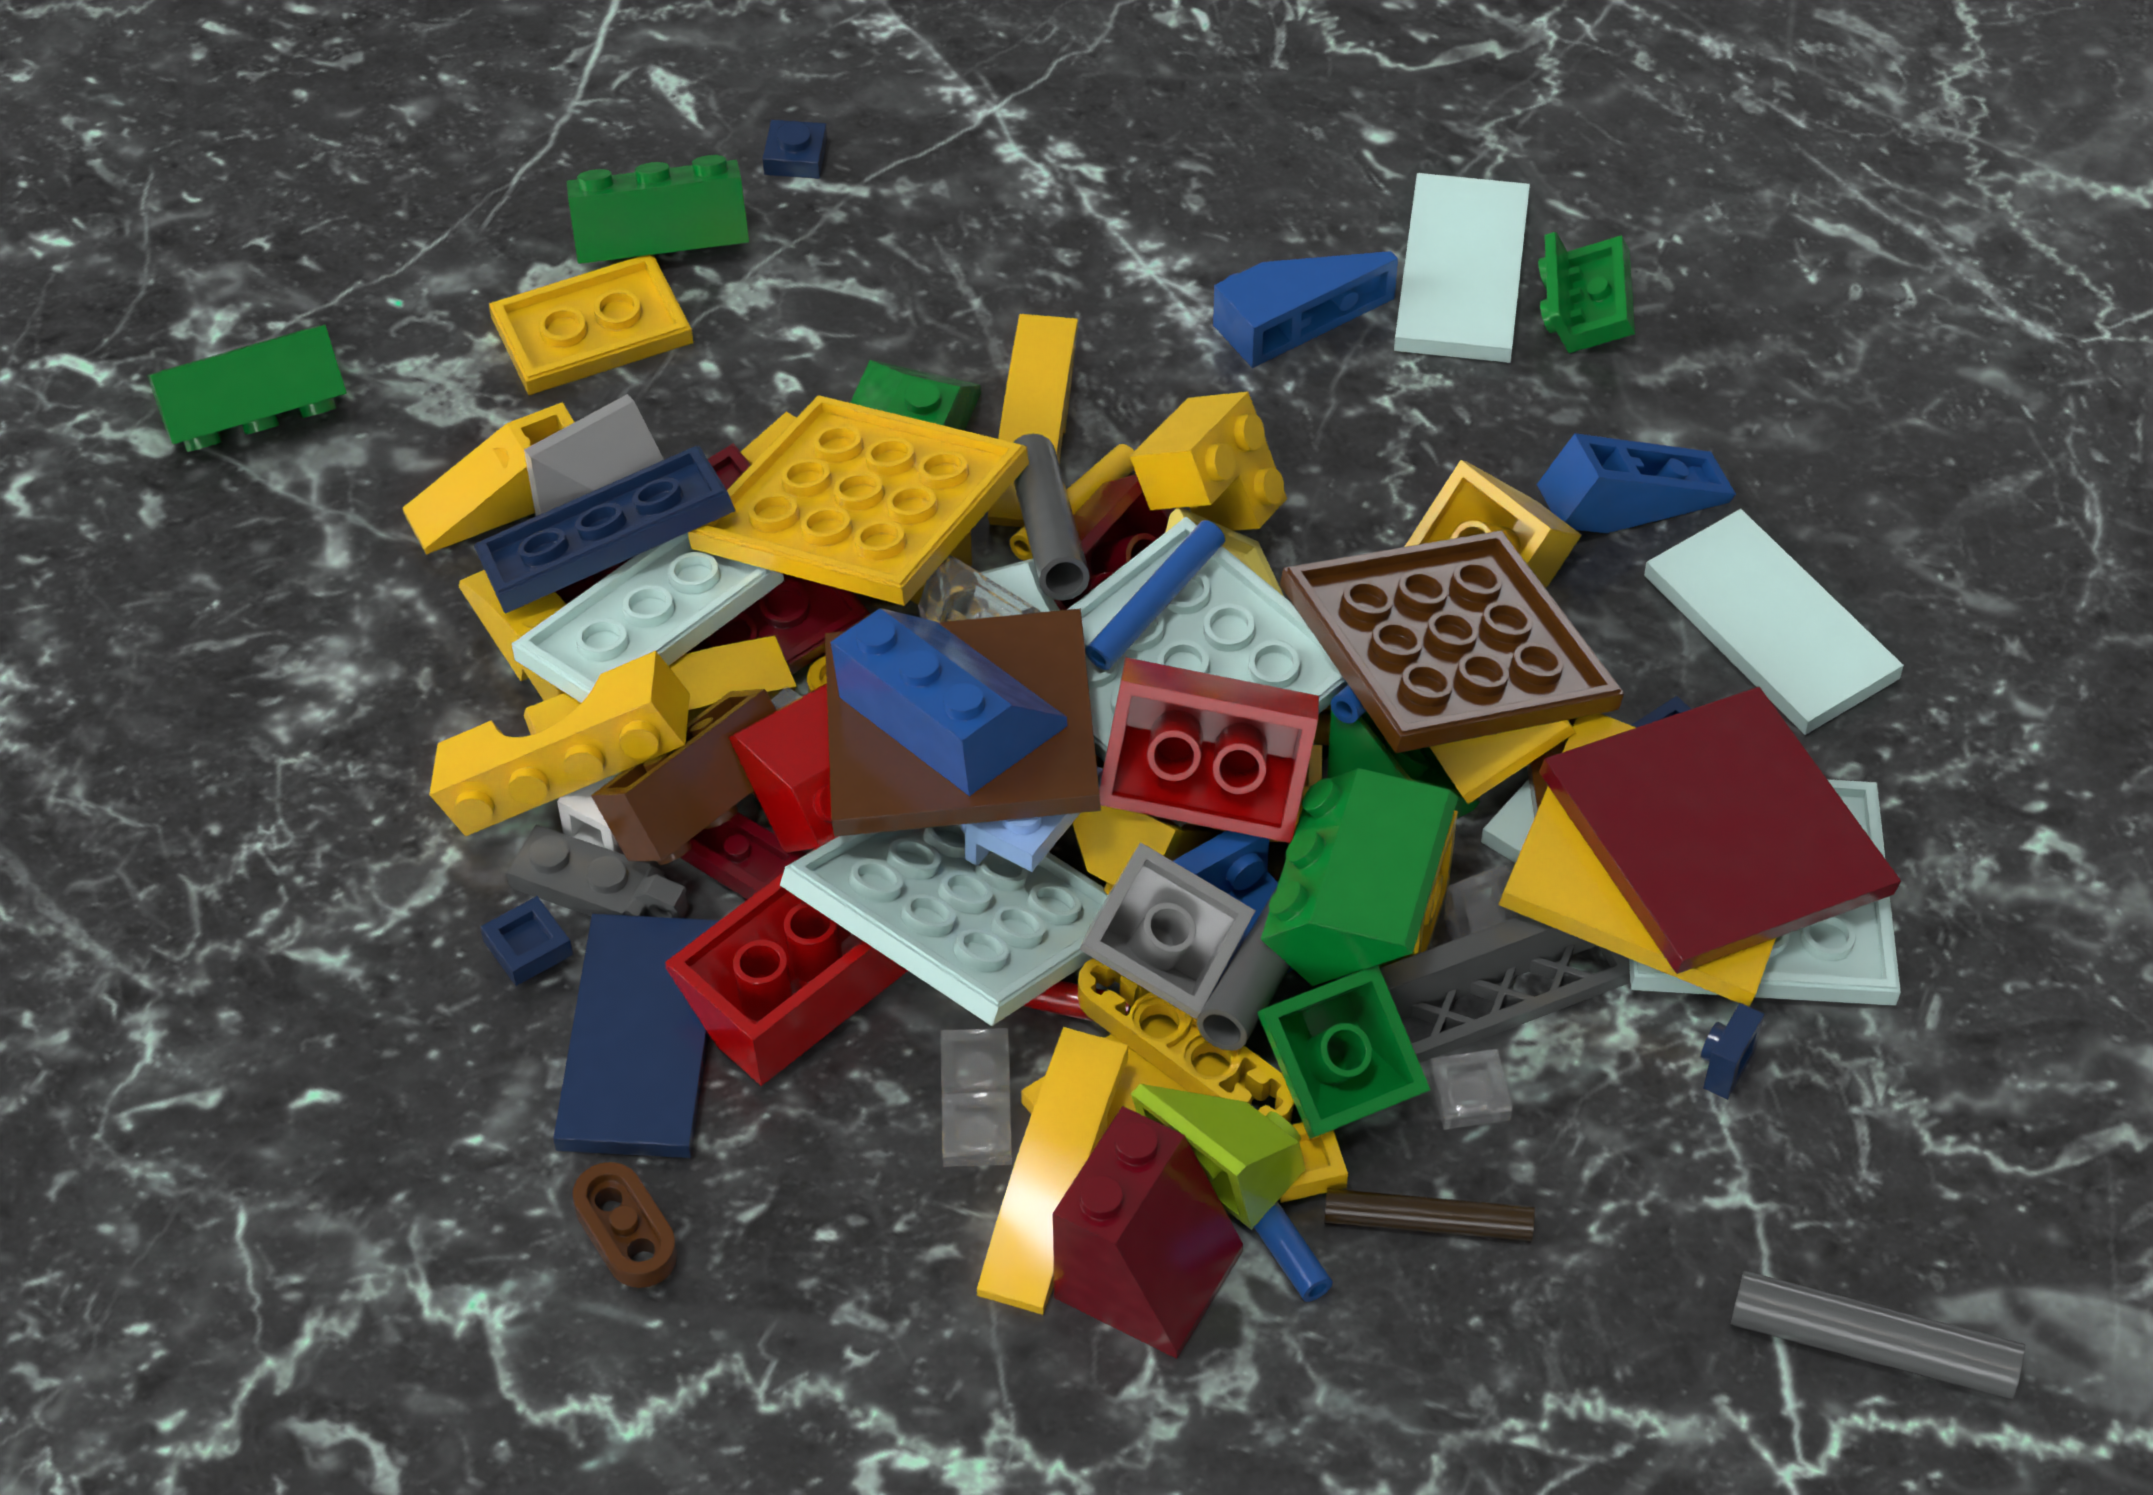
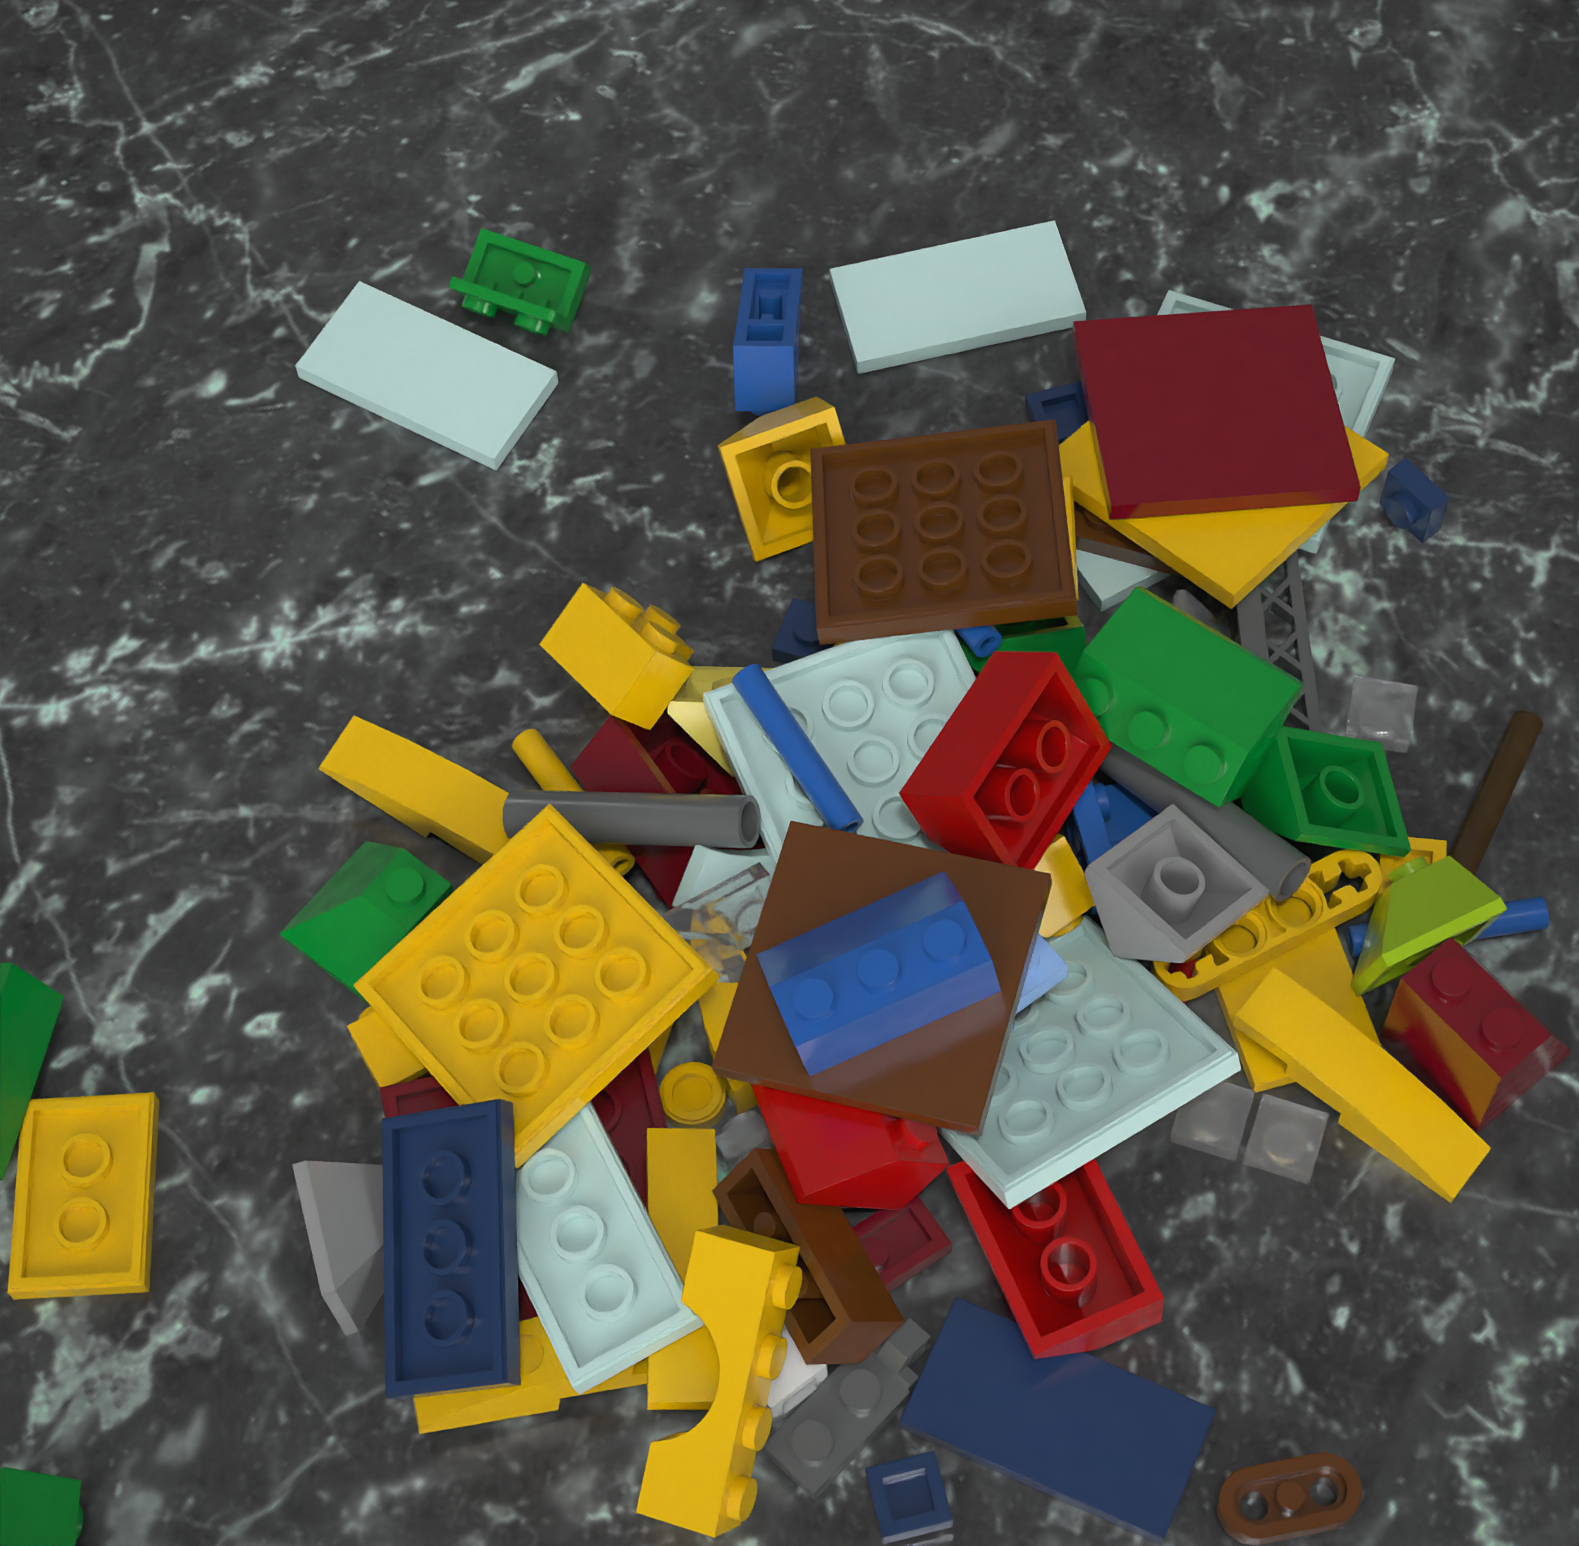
camera: 65 degrees left, 10 degrees up
(485, 486) = (288, 1352): yellow slope -> none
(1299, 299) = (407, 529): blue slope -> none

